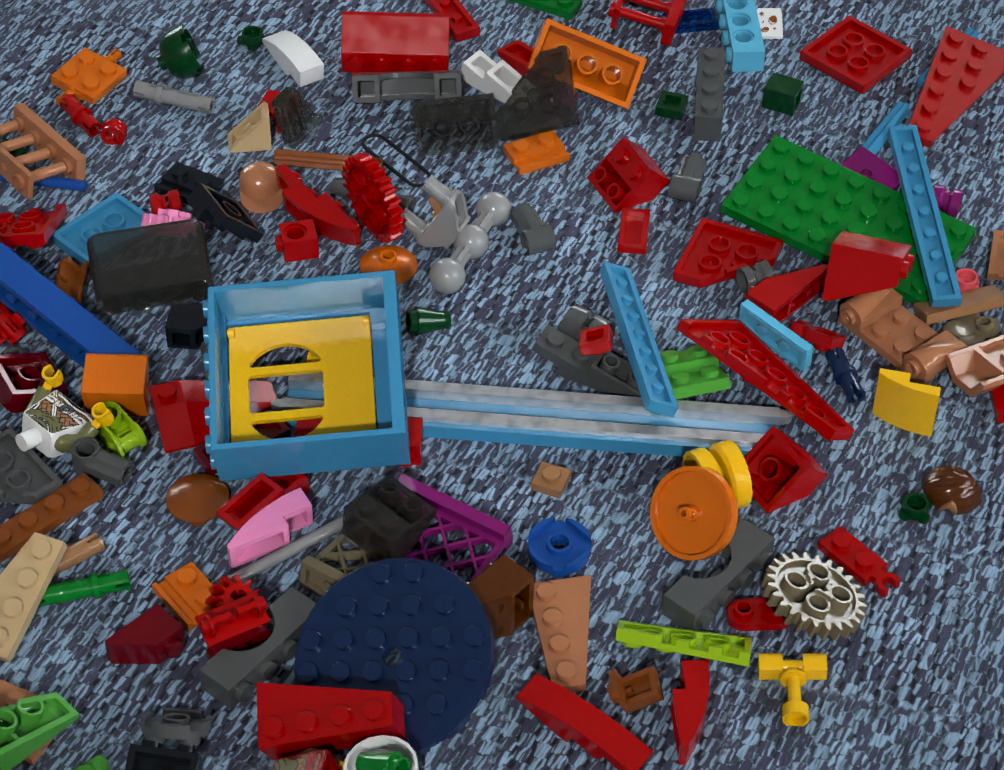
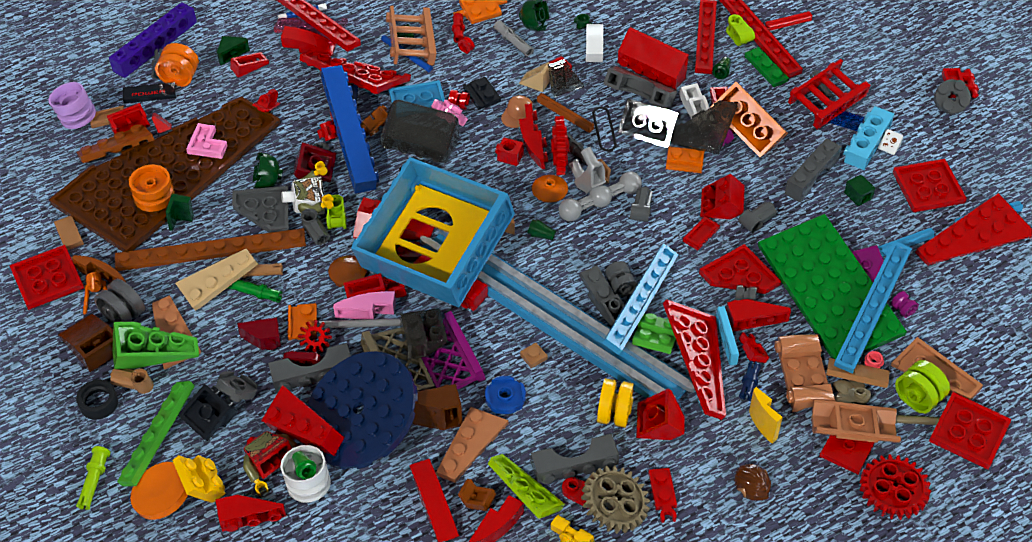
camera: 35 degrees right, 5 degrees up
(117, 379) = (349, 185): orange slope -> none
(223, 213) = (480, 117): black plate -> none
(233, 619) = (301, 345): red hinge -> none
(490, 22) = (722, 68): none -> dark green cone
(596, 340) = (613, 287): red plate -> none
(671, 105) = (786, 166): dark green plate -> none
(693, 513) = (583, 415): orange piece -> none
(865, 265) = (806, 319): red slope -> none
(916, 501) = (726, 477): dark green plate -> none

